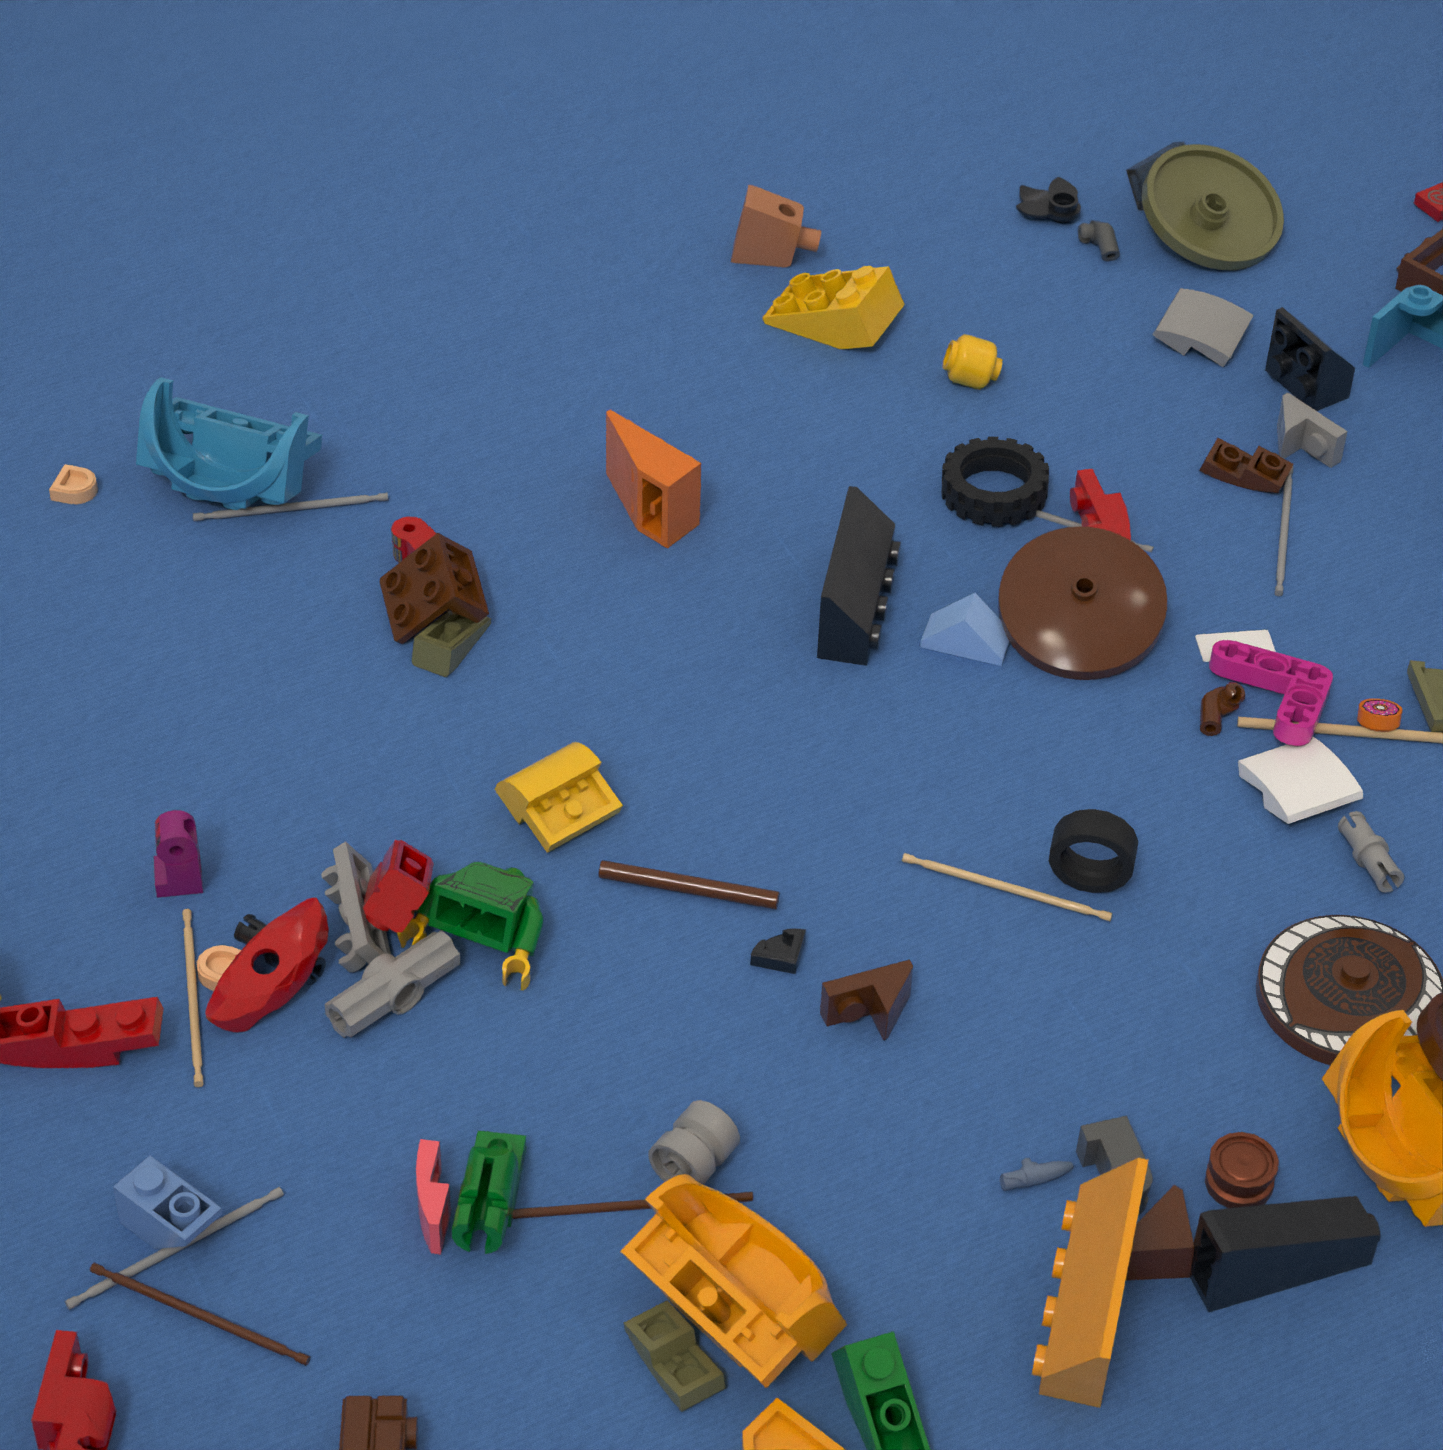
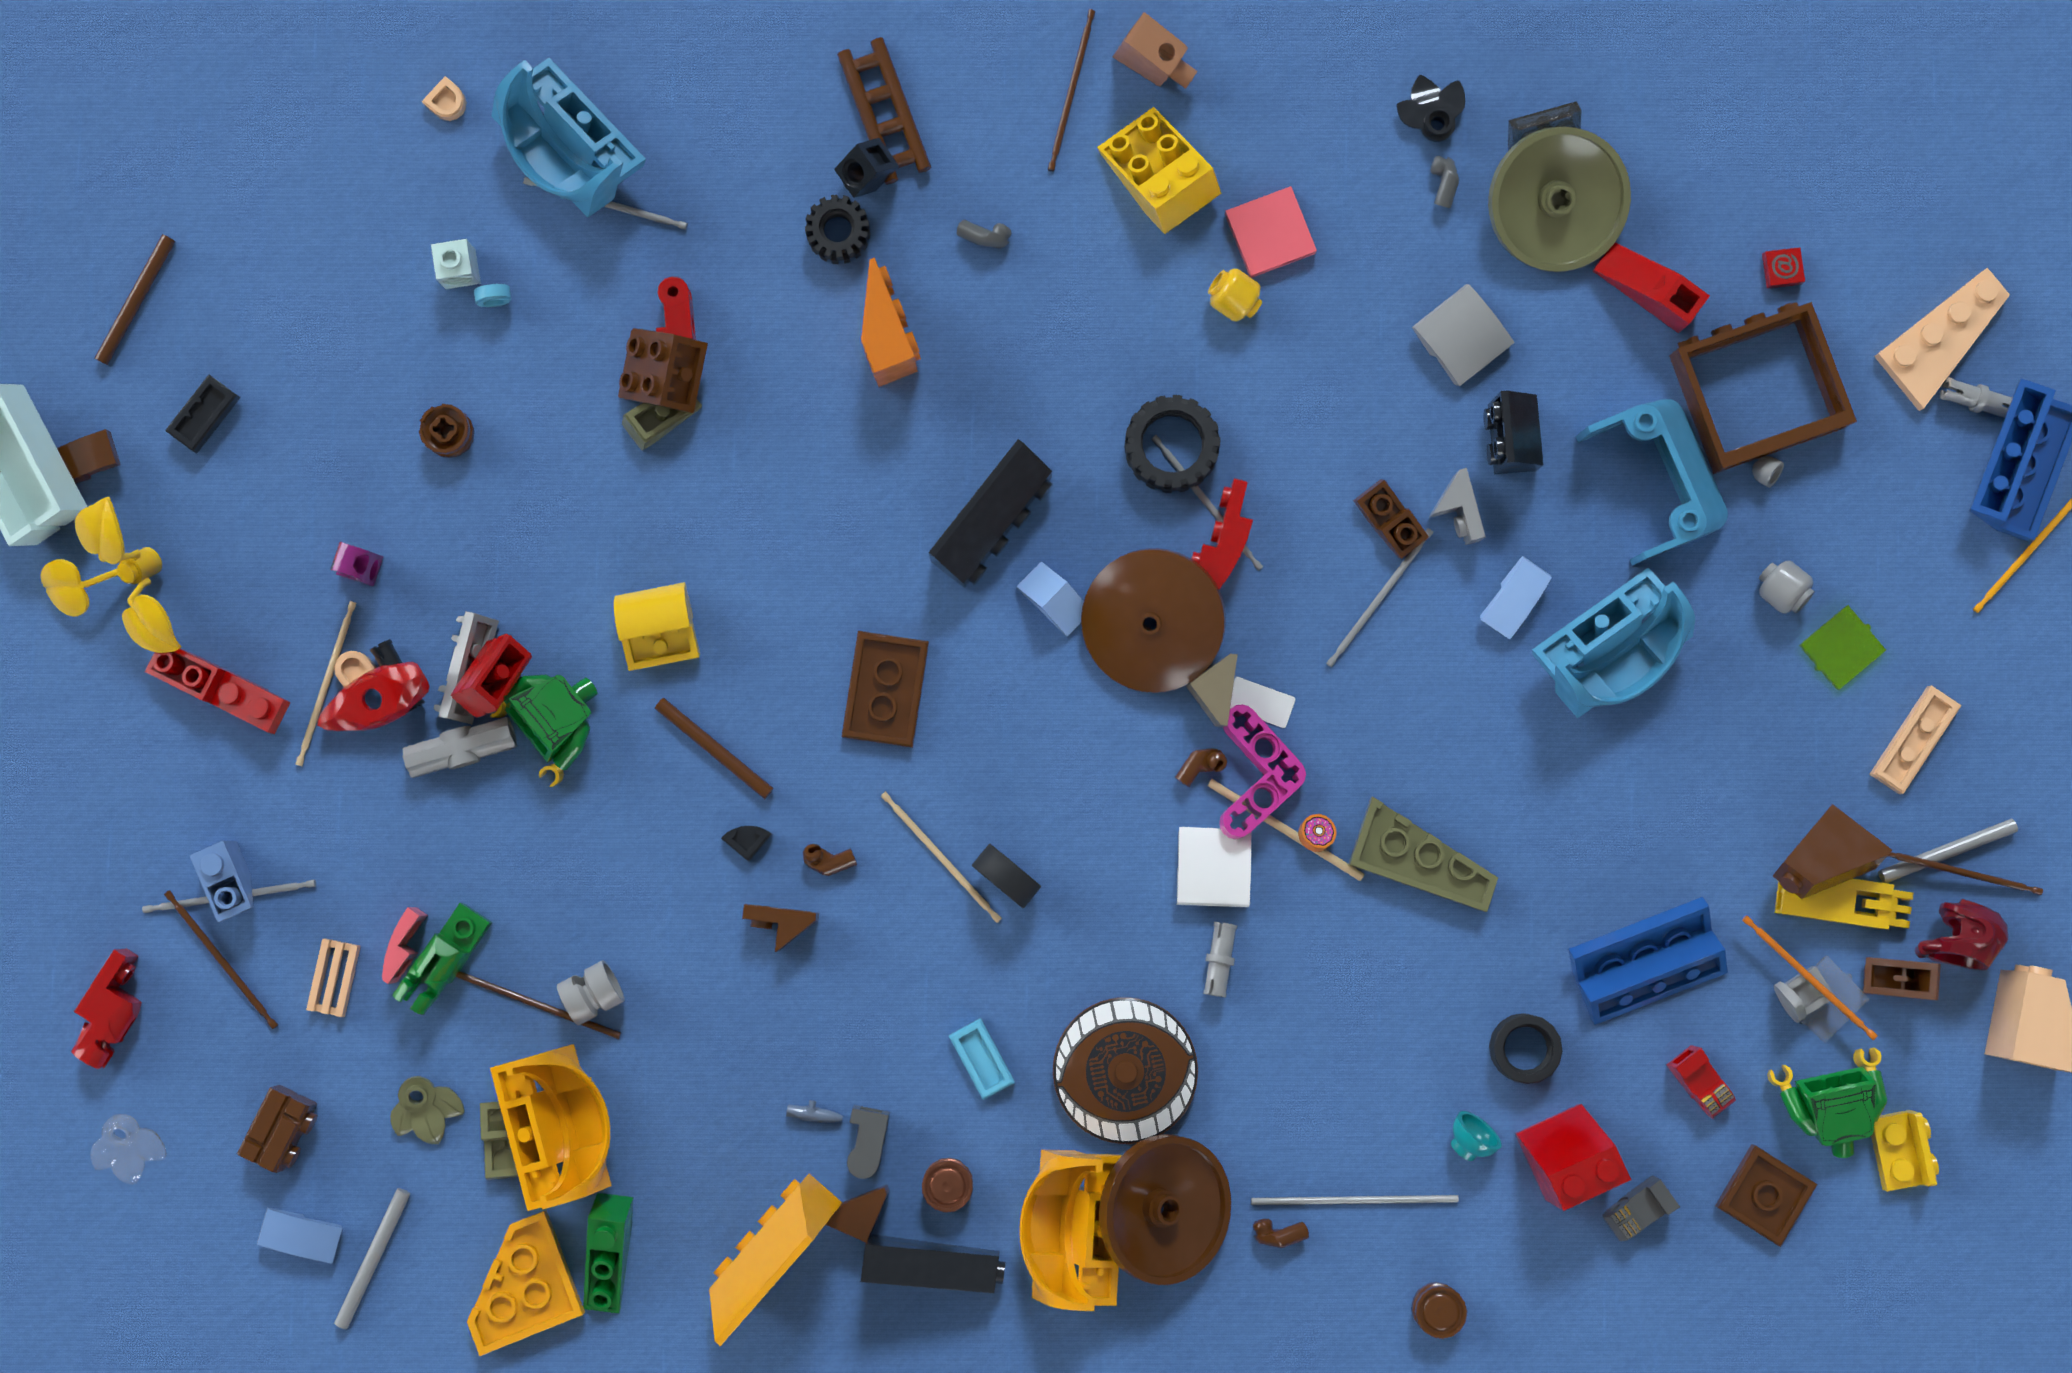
camera: 25 degrees right, 40 degrees up
(157, 587) = (455, 264): none -> light aqua brick
(210, 600) = (492, 295): none -> medium azure tile
(219, 723) = (446, 430): none -> reddish brown wheel
(351, 1241) = (319, 976): none -> light nougat tile
(538, 374) = (866, 167): none -> black brick
(541, 371) = (893, 90): none -> reddish brown bar
(556, 457) = (837, 208): none -> black tyre
(558, 1369) = (426, 1115): none -> olive plate
(704, 402) = (984, 237): none -> dark grey arm
(709, 293) = (1071, 90): none -> reddish brown piece
(843, 769) = (885, 689): none -> reddish brown tile
(885, 935) = (827, 863): none -> reddish brown arm
(971, 313) = (1270, 232): none -> coral tile
(1187, 640) = (1214, 690): none -> dark tan slope
(1187, 1044) = (981, 1058): none -> medium azure tile
(1351, 236) = (1652, 286): none -> red slope
(1412, 477) = (1516, 597): none -> light blue slope

